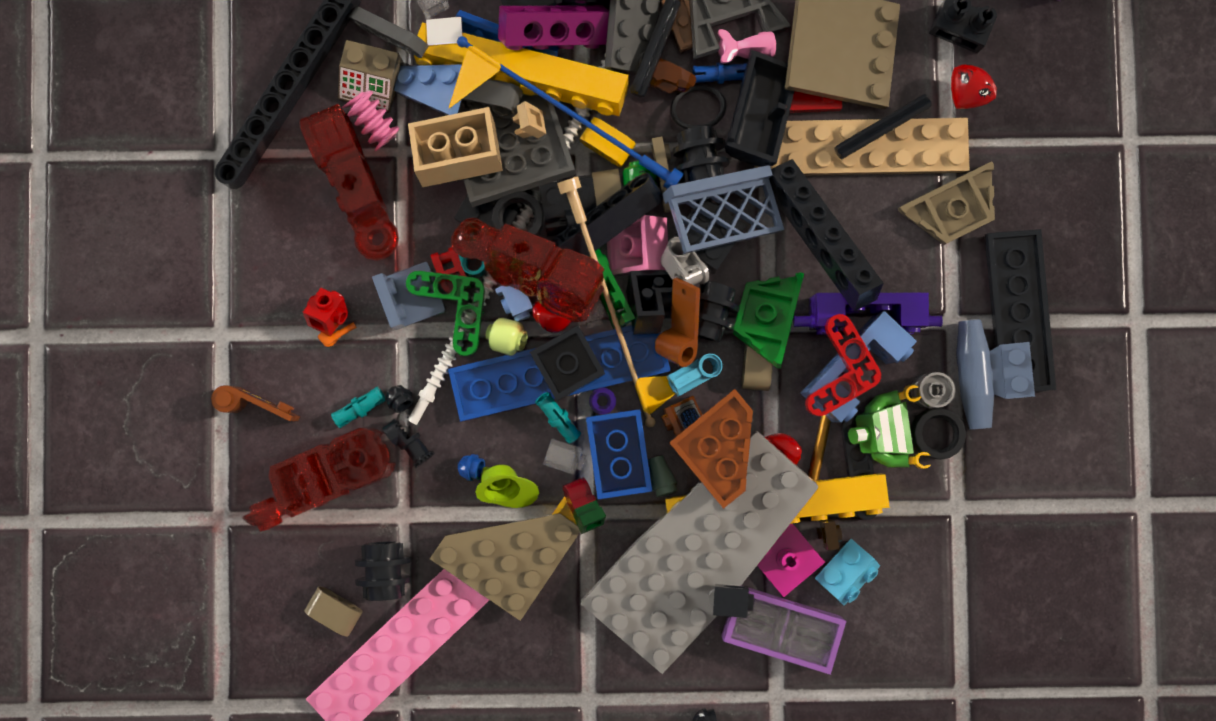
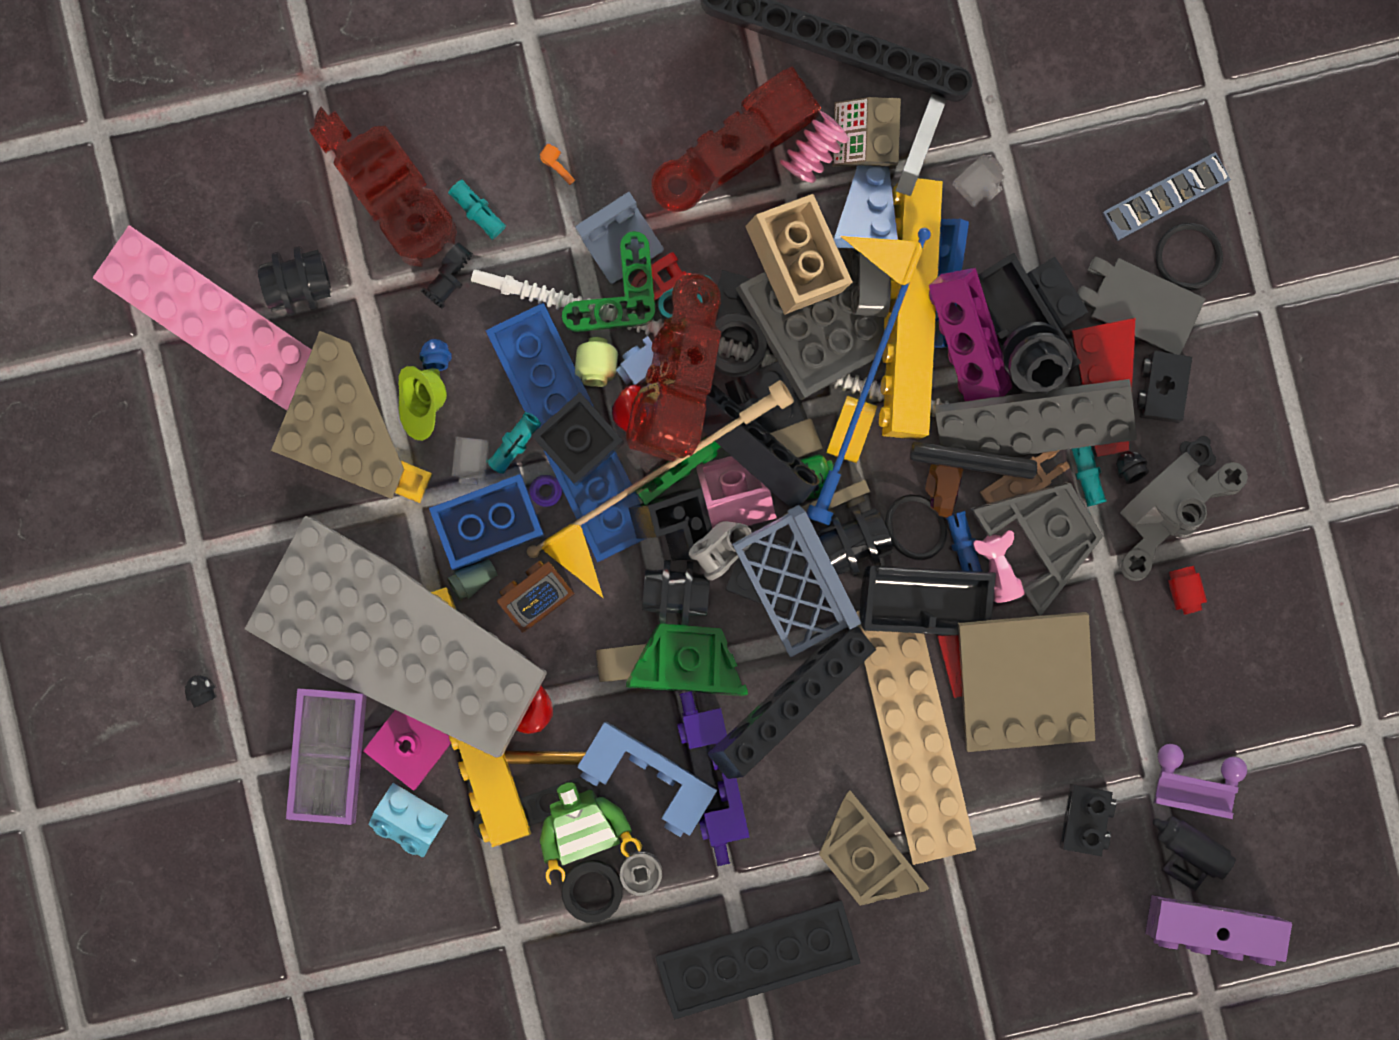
camera: 75 degrees right, 0 degrees up
(234, 399) = (455, 64): dark orange door -> none
(326, 311) = (579, 146): red brick -> none
(333, 611) = (235, 234): dark tan beam -> none
(399, 398) = (496, 253): black plate -> none
(443, 30) = (936, 209): white sticker -> none
(530, 121) = (850, 333): tan tile -> none
(583, 505) = (418, 494): leg -> none
(681, 341) = (632, 564): dark orange door -> none
(693, 375) = (598, 588): medium azure piece -> none
(719, 447) = (516, 631): dark orange plate -> none
(732, 601) = (345, 686): black brick -> none
(830, 534) = (447, 787): dark brown plate -> none
(853, 376) = (631, 767): red beam -> none
(883, 126) = (939, 749): black axle -> none
(971, 87) = (1009, 844): red piece -> none
(987, 373) = (676, 935): sand blue plate -> none

